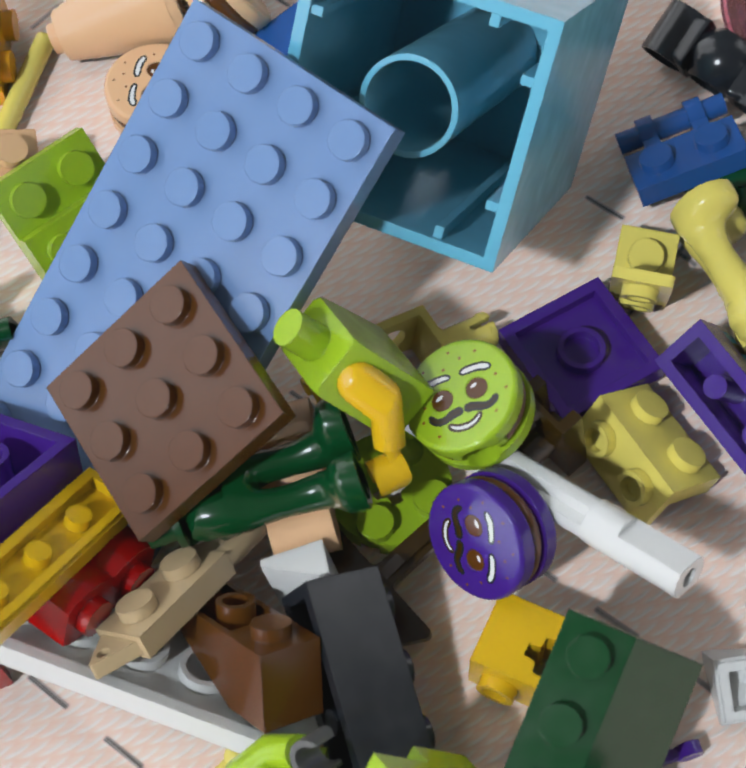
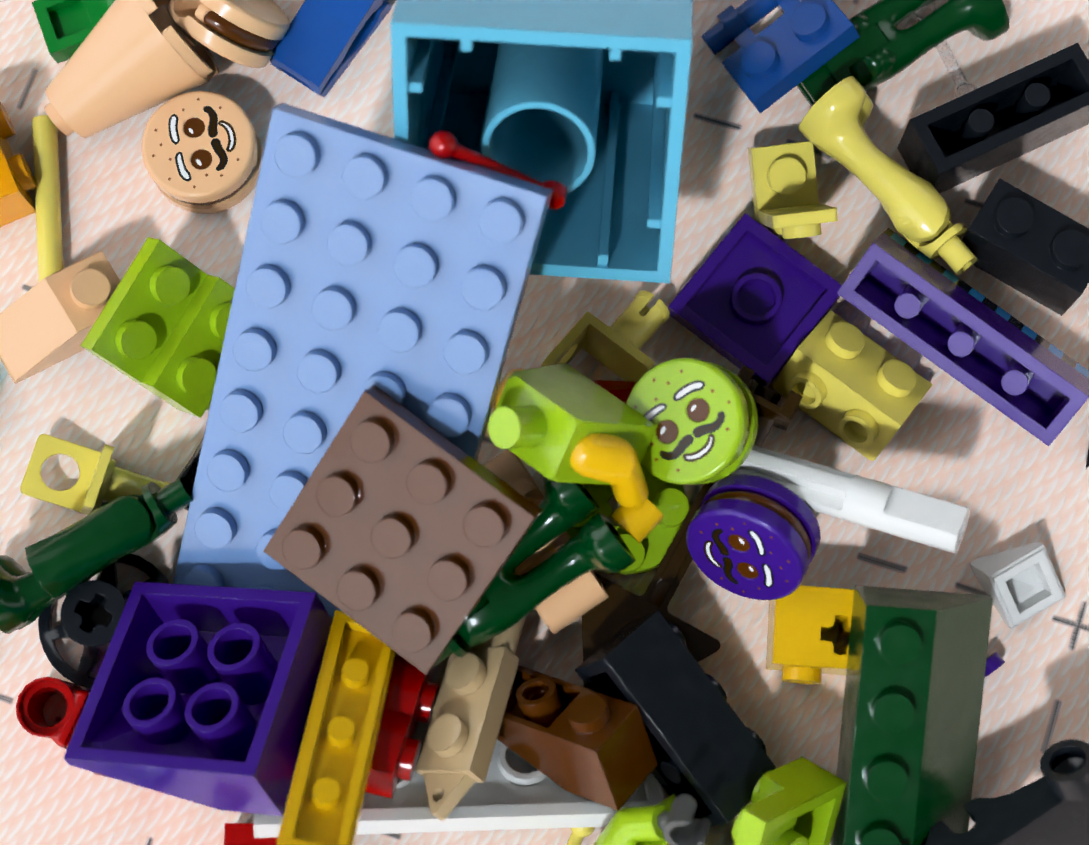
camera: 20 degrees left, 15 degrees up
(295, 566) = (581, 635): white slope -> none
(327, 69) = (444, 145): none -> red hinge

